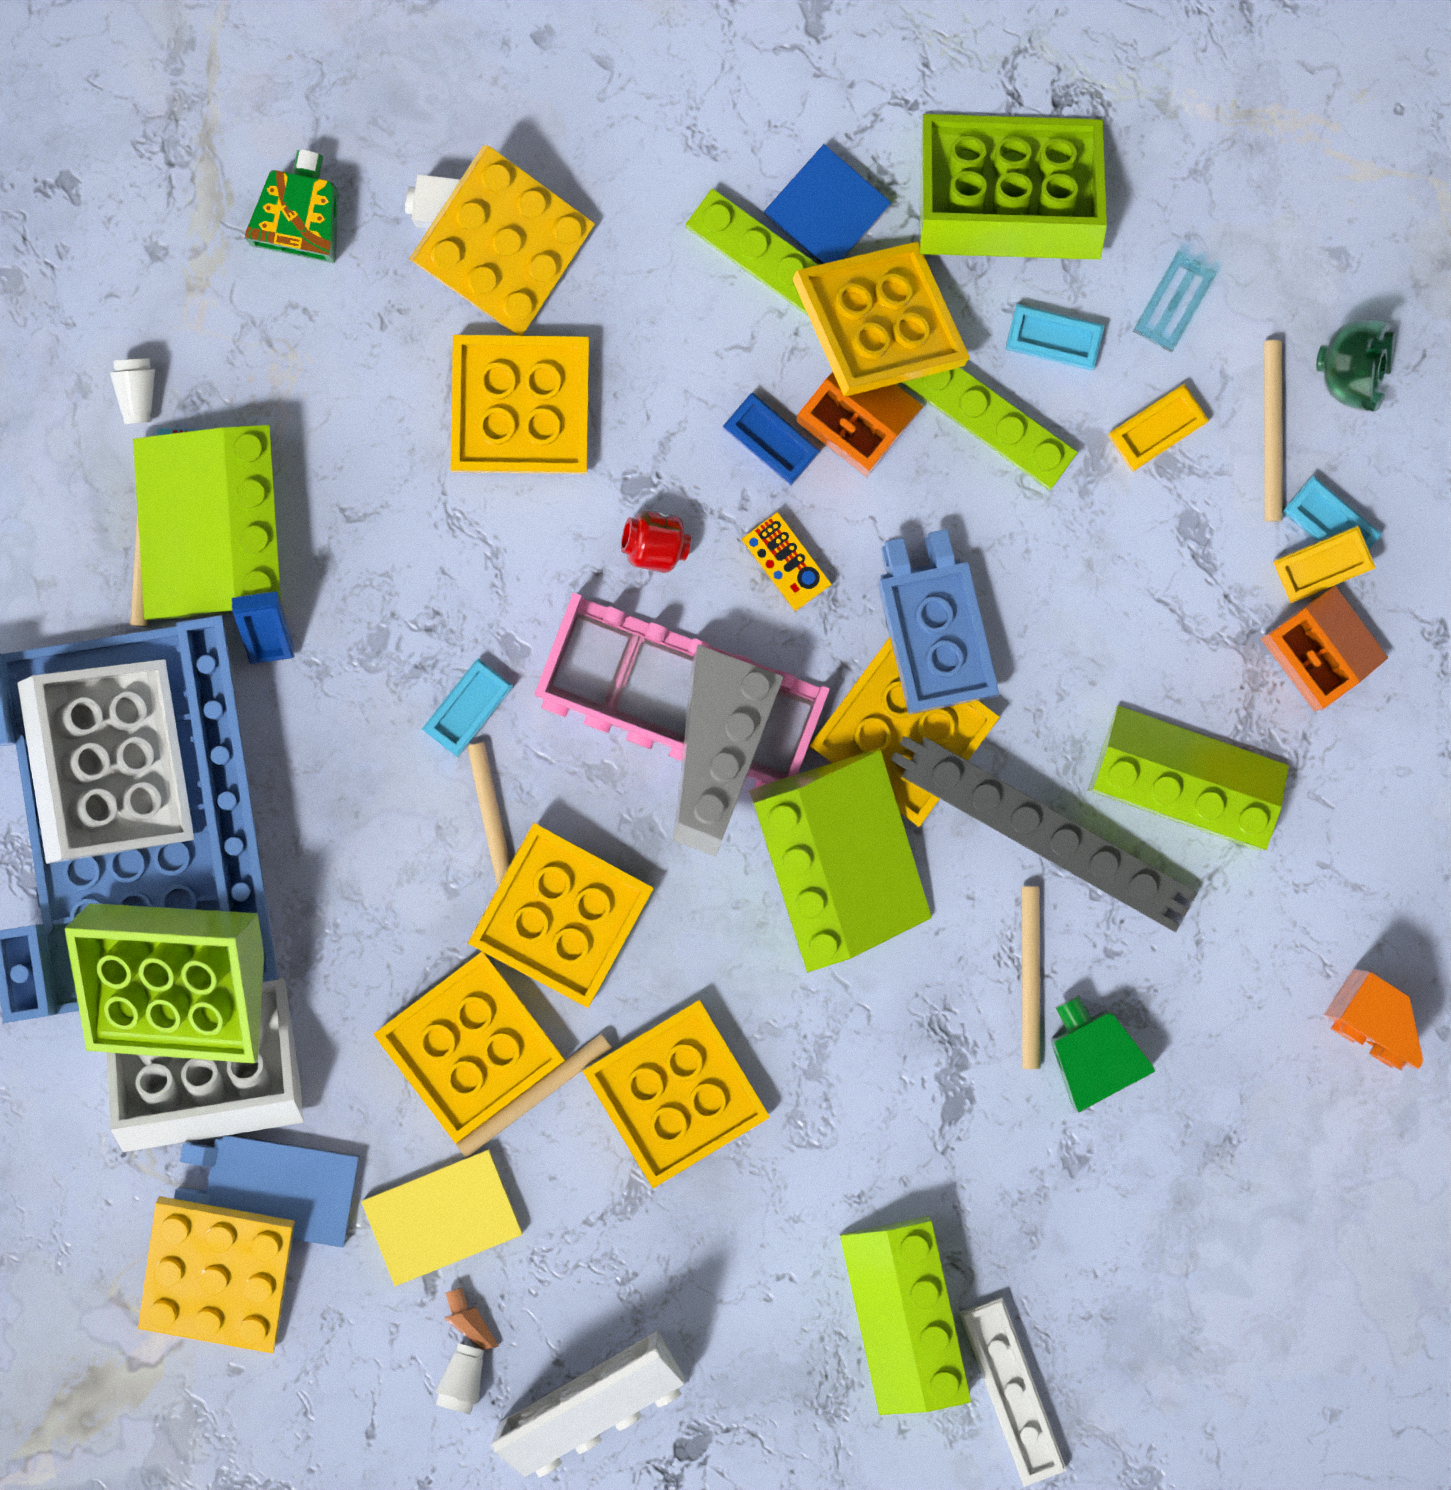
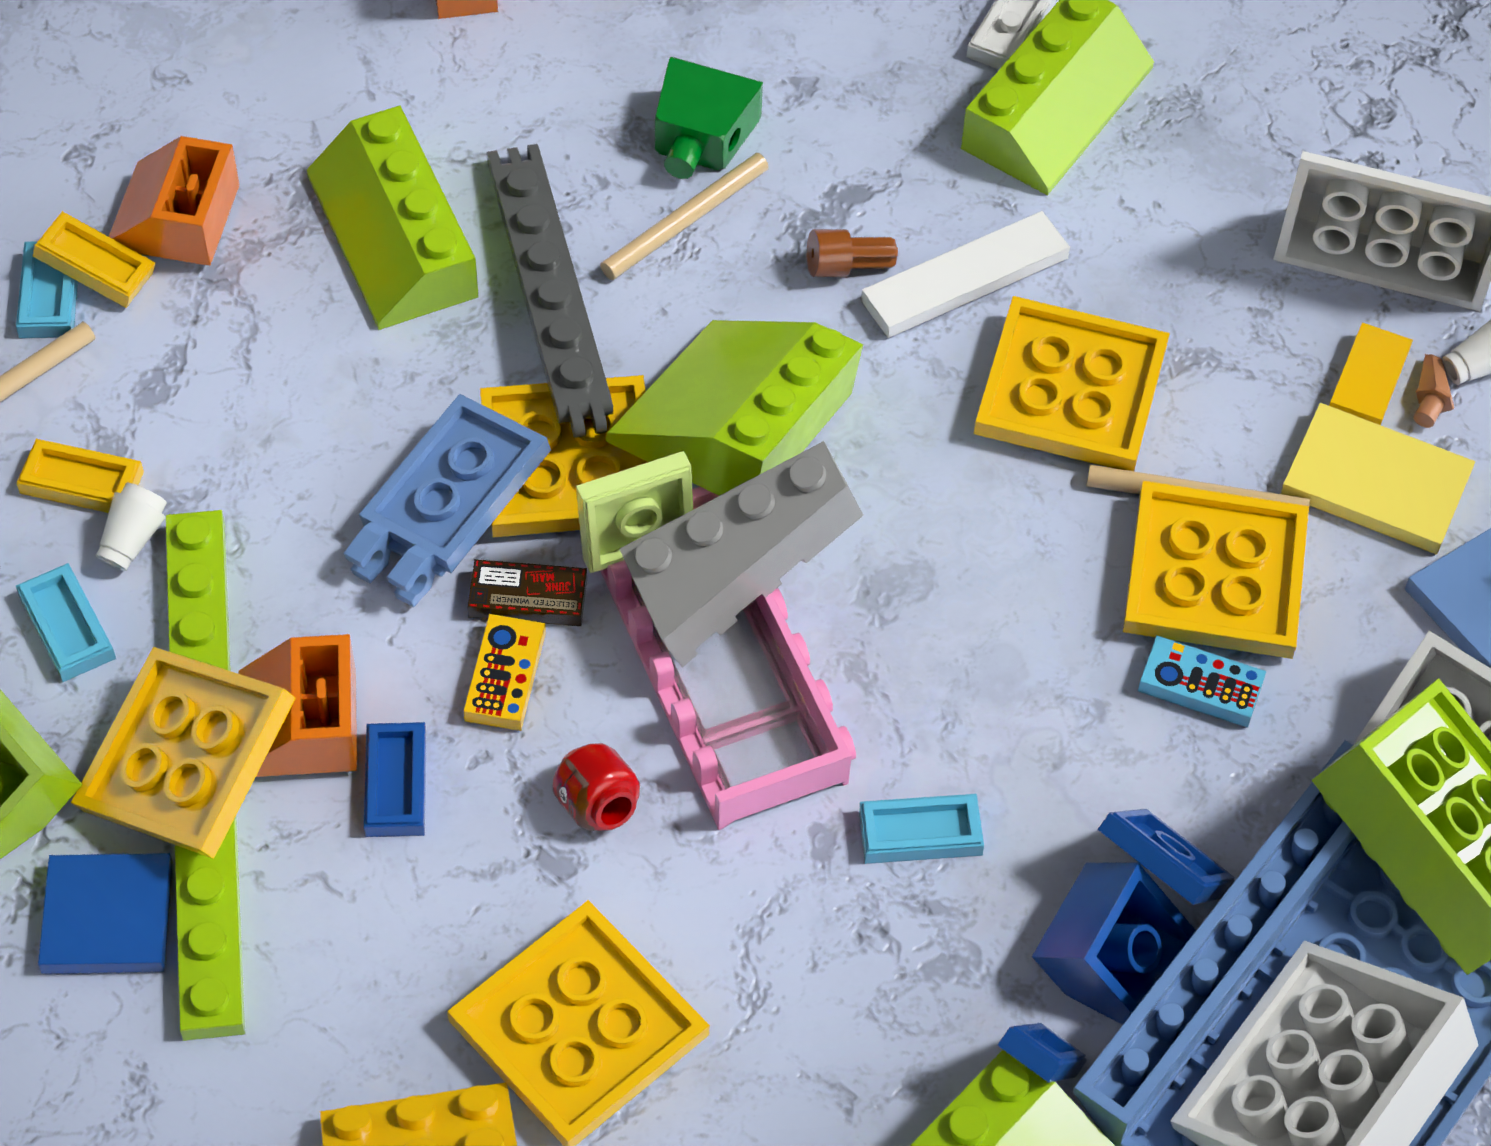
camera: 135 degrees left, 30 degrees down
(293, 740) = (1112, 938): none -> blue slope
(311, 814) = (1167, 855): none -> blue tile
(409, 963) = (1202, 681): none -> medium azure tile
(489, 809) = (1009, 710): tan bar -> none
(514, 1292) = (1371, 373): none -> yellow tile
(560, 915) = (1024, 587): yellow plate -> none
(803, 713) = (630, 505): none -> yellowish green tile
(821, 1113) = (965, 274): none -> white tile
(829, 623) = (528, 592): none -> dark brown tile
(907, 1039) = (836, 252): none -> dark orange piece
(1087, 425) = (130, 524): none -> white cone

